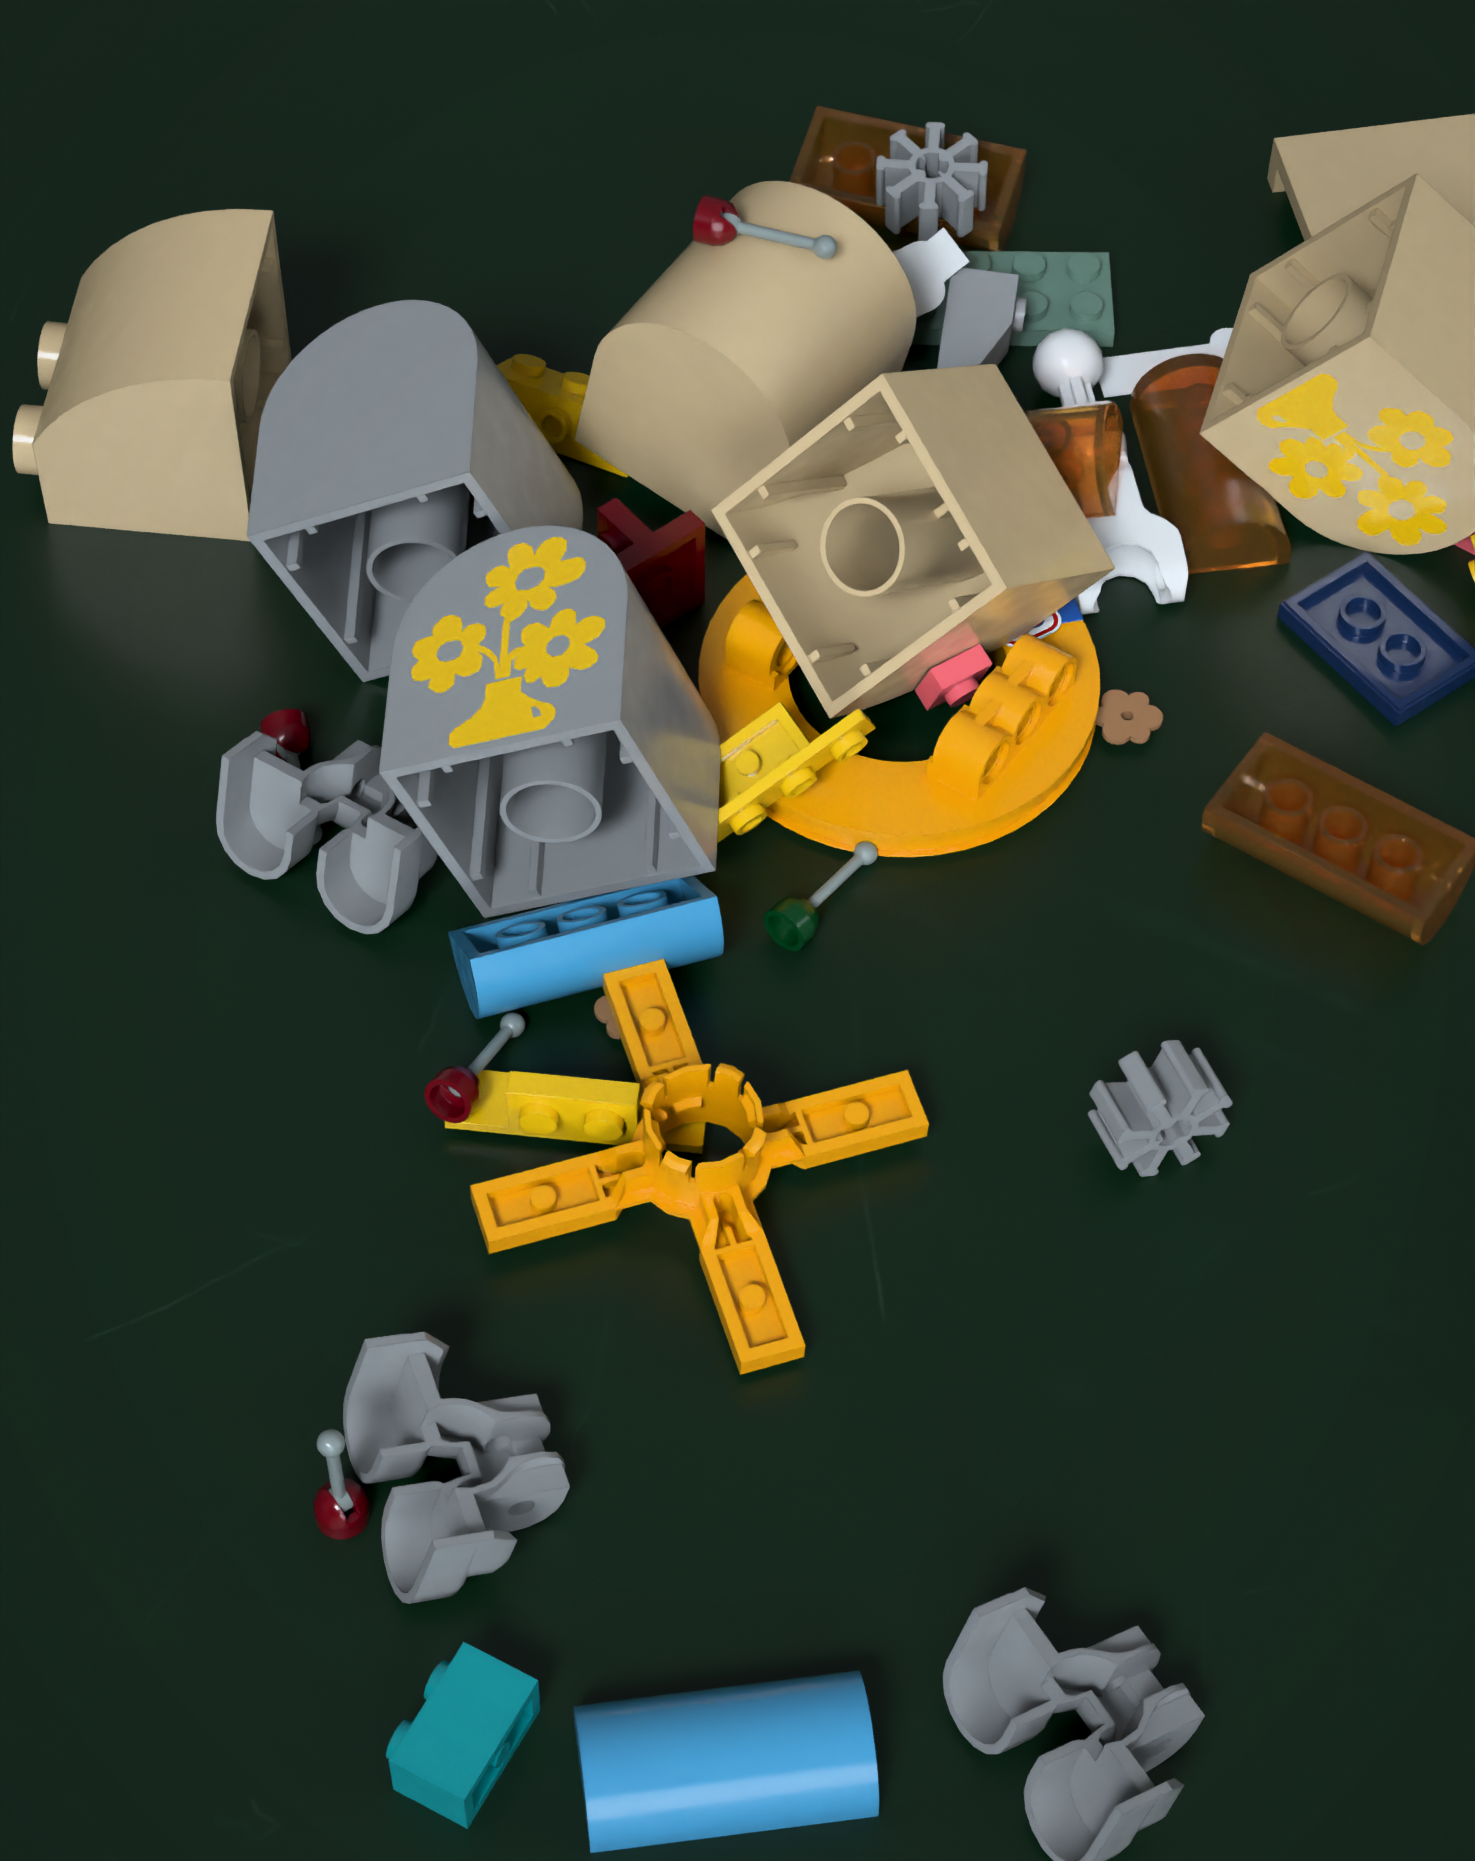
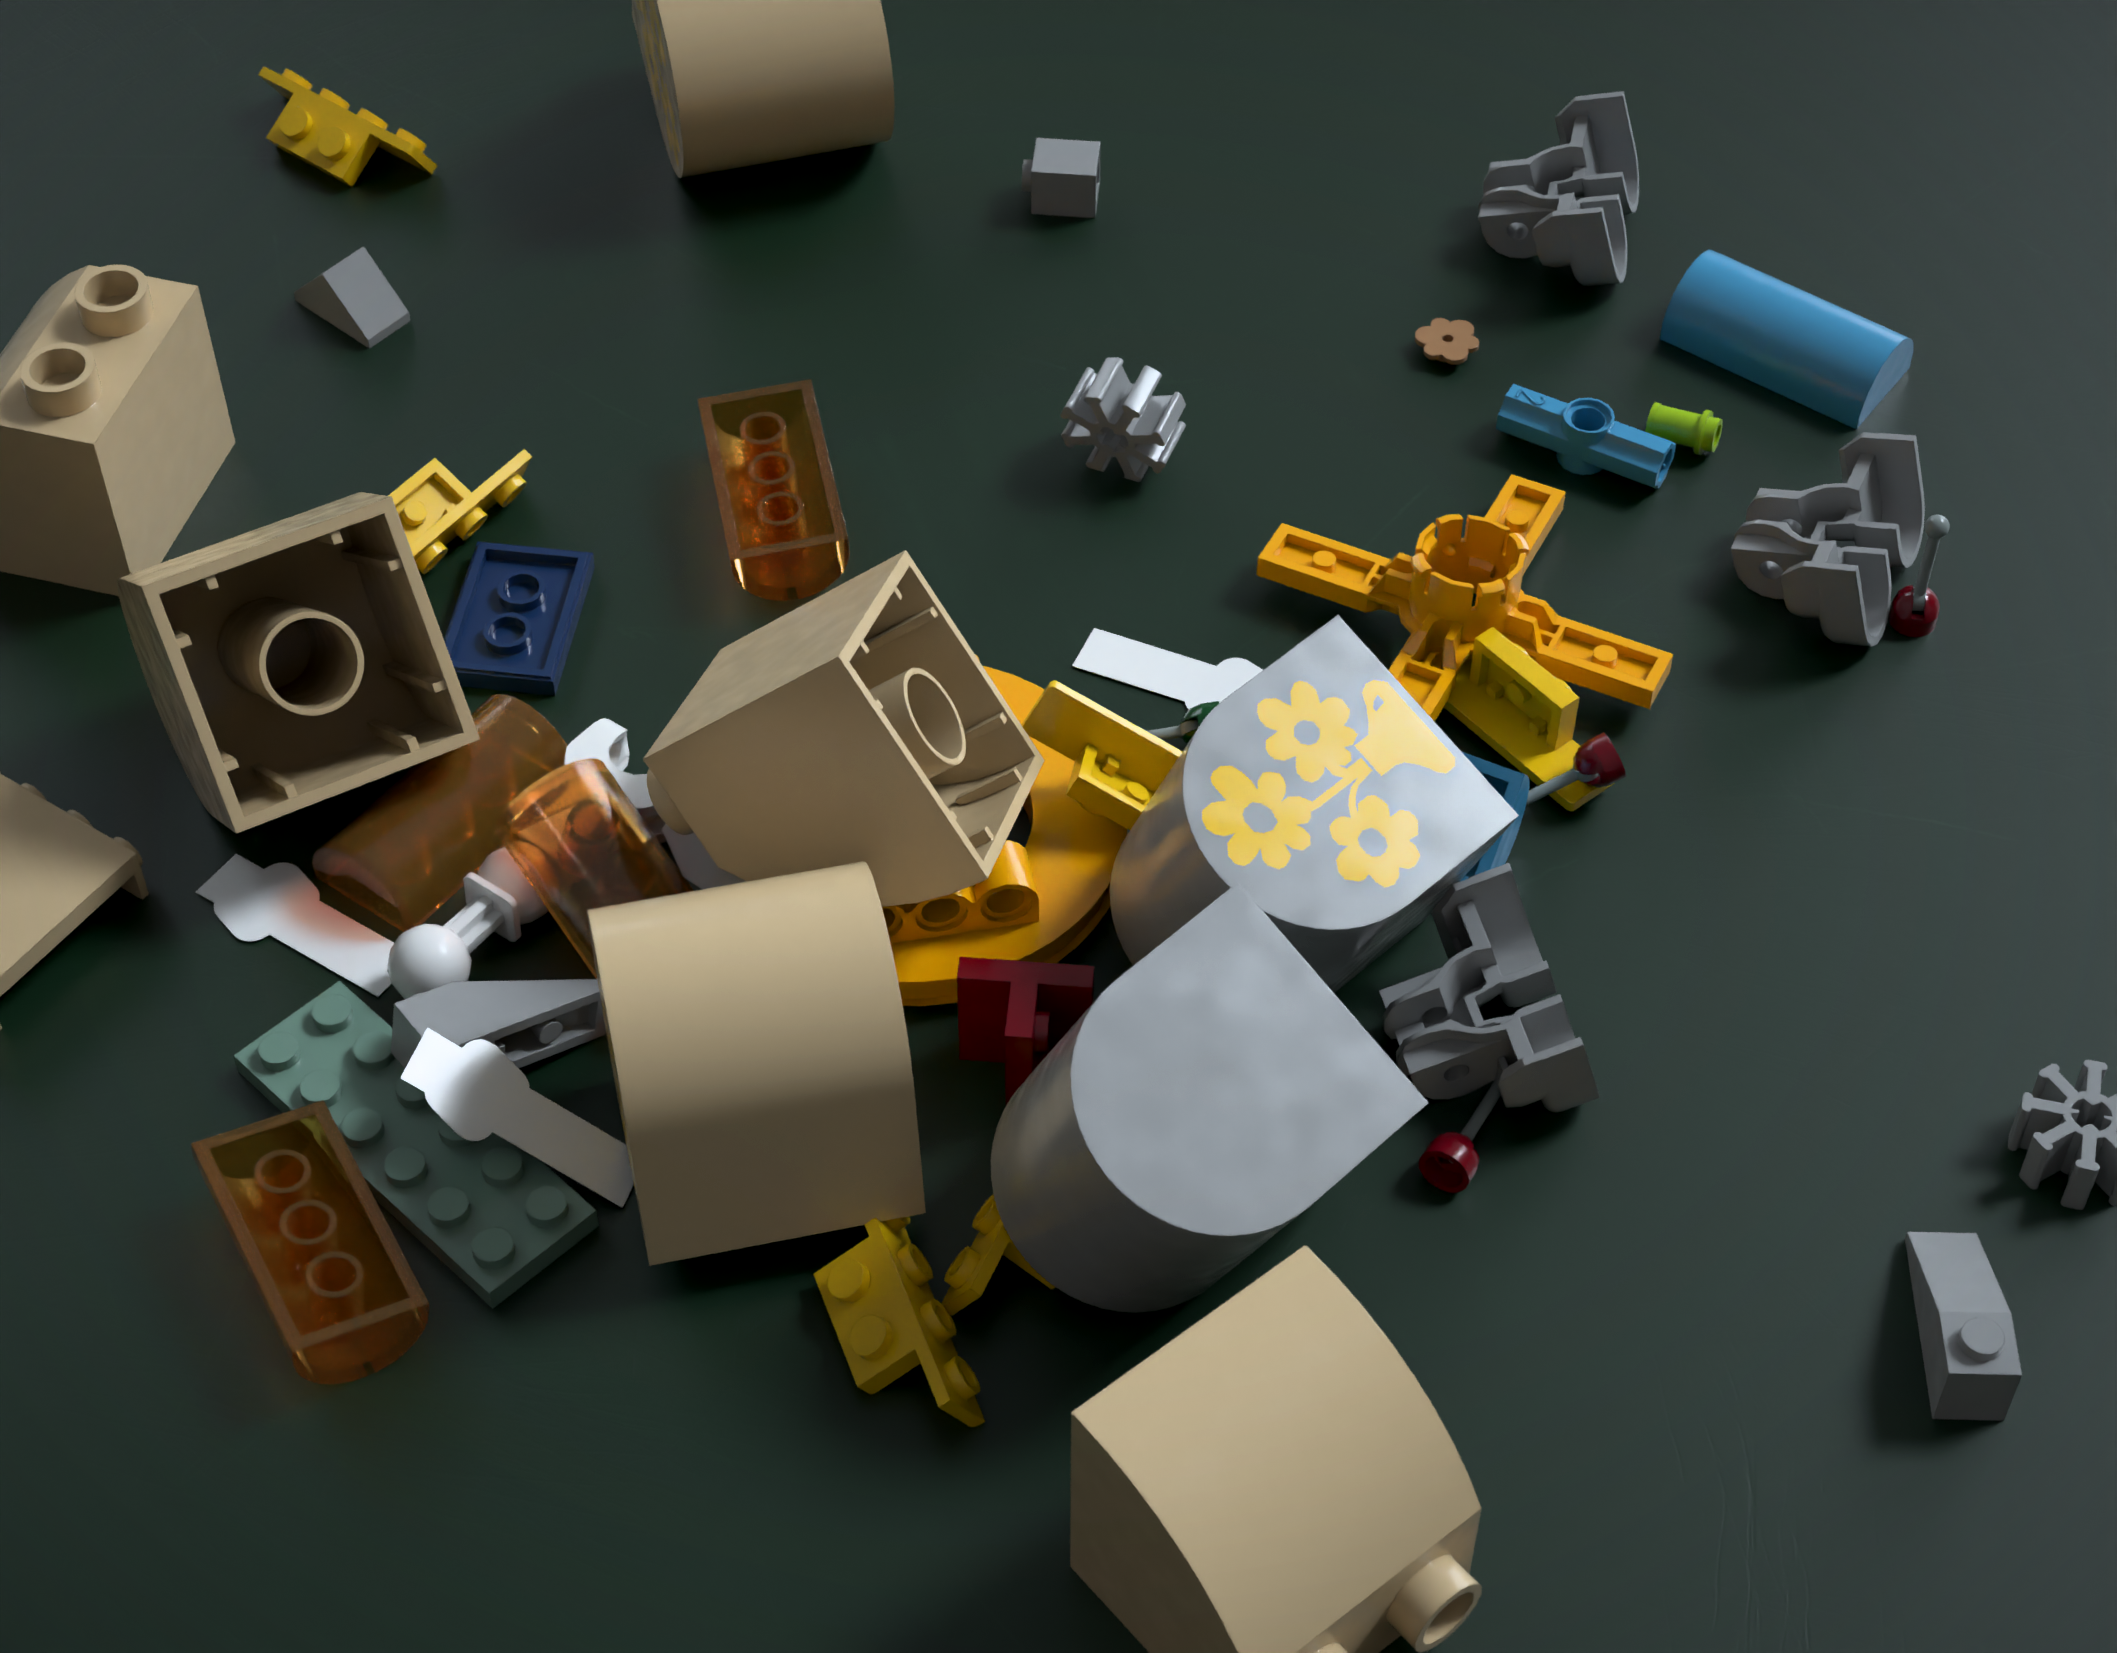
camera: 135 degrees left, 5 degrees down
(463, 1733) = (1956, 431): teal brick -> none
(716, 1549) = (1685, 427): none -> lime pin
(719, 223) = (725, 992): hinge -> none
(747, 1461) = (1585, 436): none -> dark azure piece
(827, 984) = (1162, 670): none -> white sticker
(931, 182) = (331, 1154): light grey gear -> none
(1042, 1478) = (1447, 340): none -> medium nougat plant

